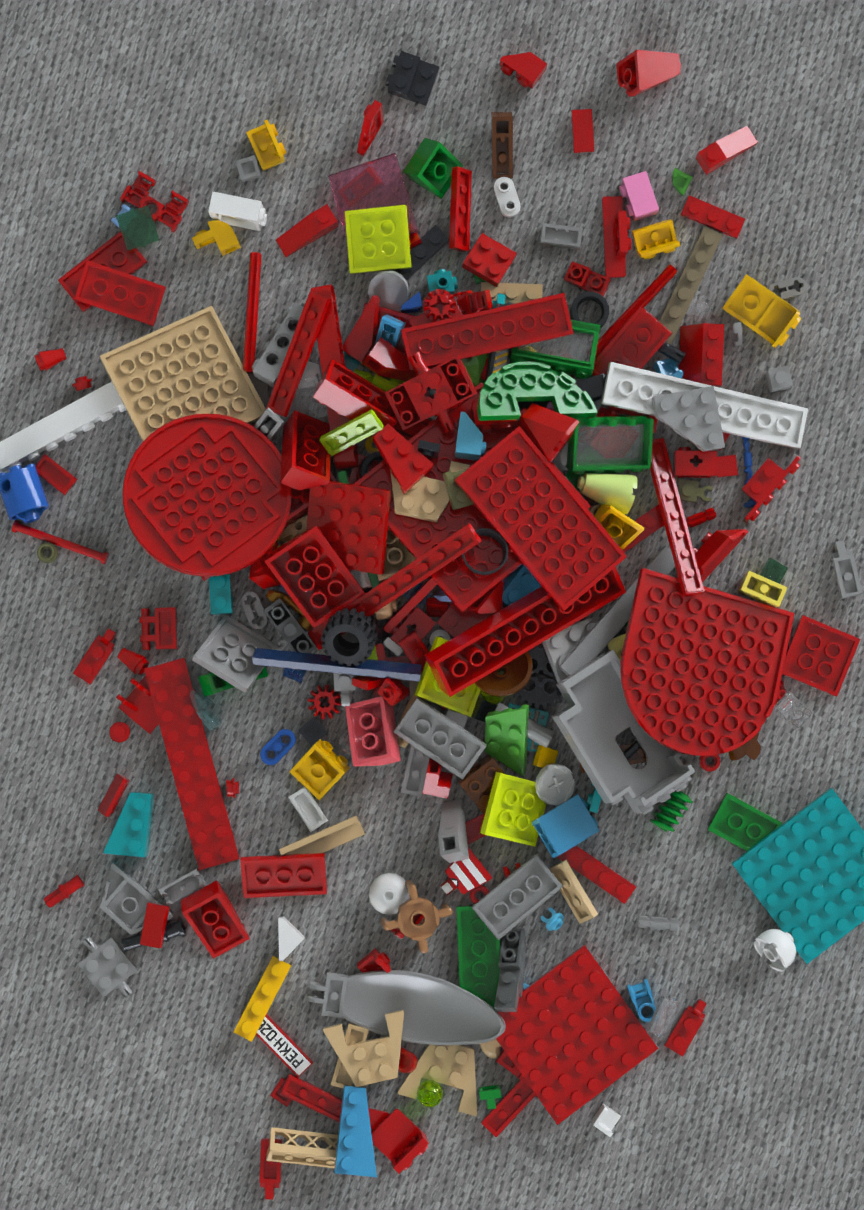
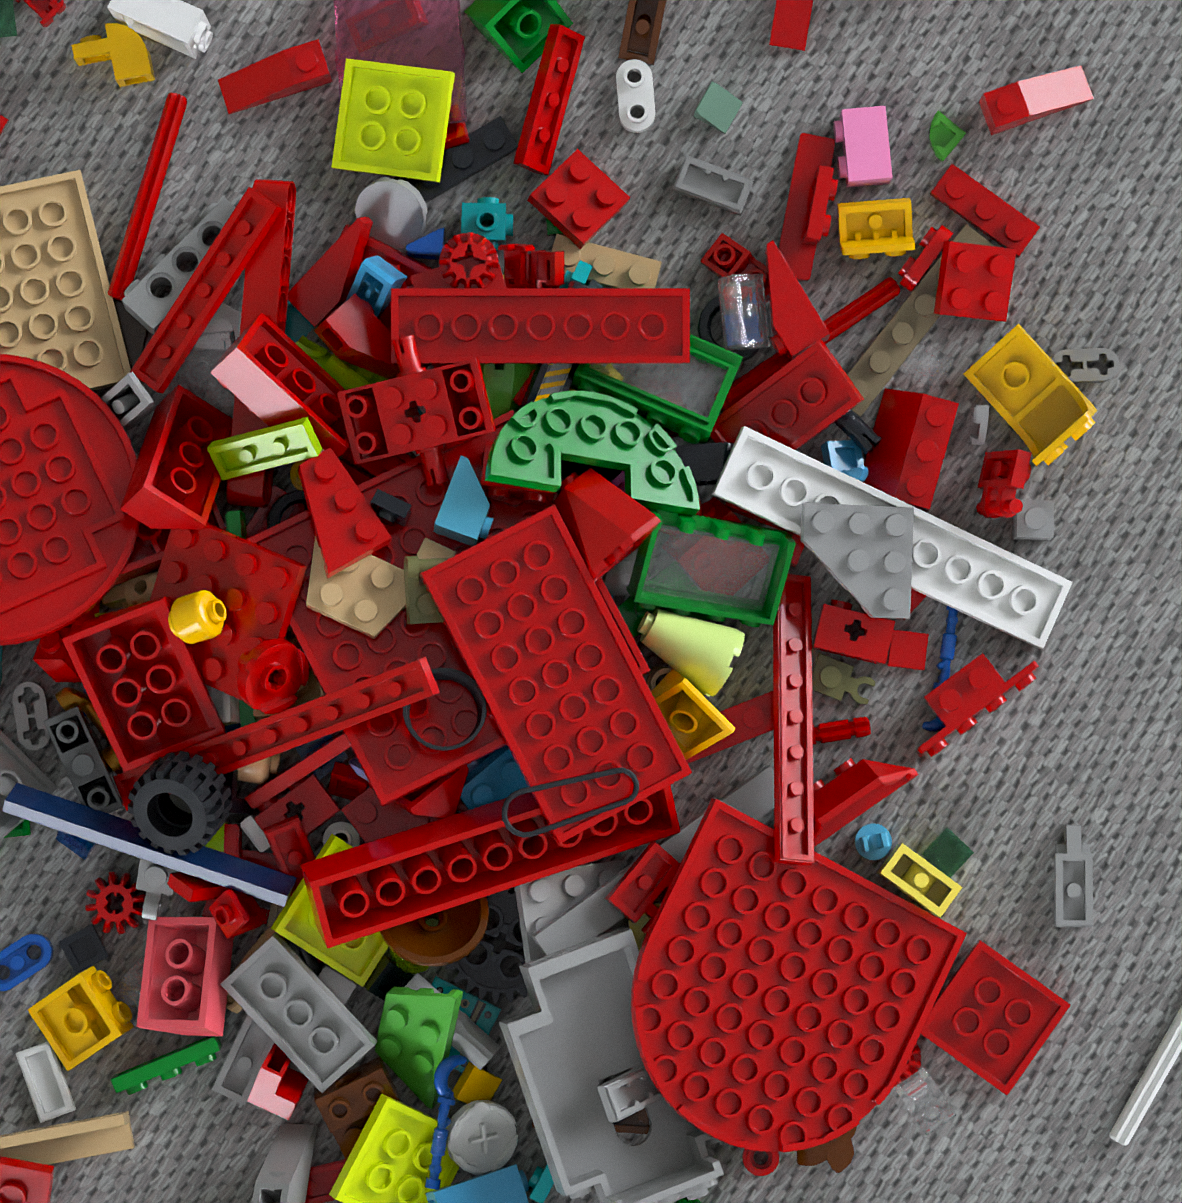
camera: 10 degrees right, 0 degrees up
(337, 532) = (197, 617): none -> yellow head
(373, 784) = (167, 1065): none -> green plate
(376, 553) = (256, 668): none -> red plate
(532, 786) = (440, 1133): none -> blue piece
(553, 193) = (718, 107): none -> sand green slope
(569, 595) = (564, 782): none -> black piece
(594, 301) = (743, 312): none -> clear slope
(613, 624) = (643, 884): none -> red plate
(621, 295) = (792, 315): none -> red slope
(632, 739) = (628, 1094): none -> light grey plate
(689, 241) = (915, 269): none -> red plate
(717, 256) = (975, 281): none -> red plate
(731, 575) = (873, 841): none -> medium azure plate
(756, 362) = (1000, 478): none -> red plate

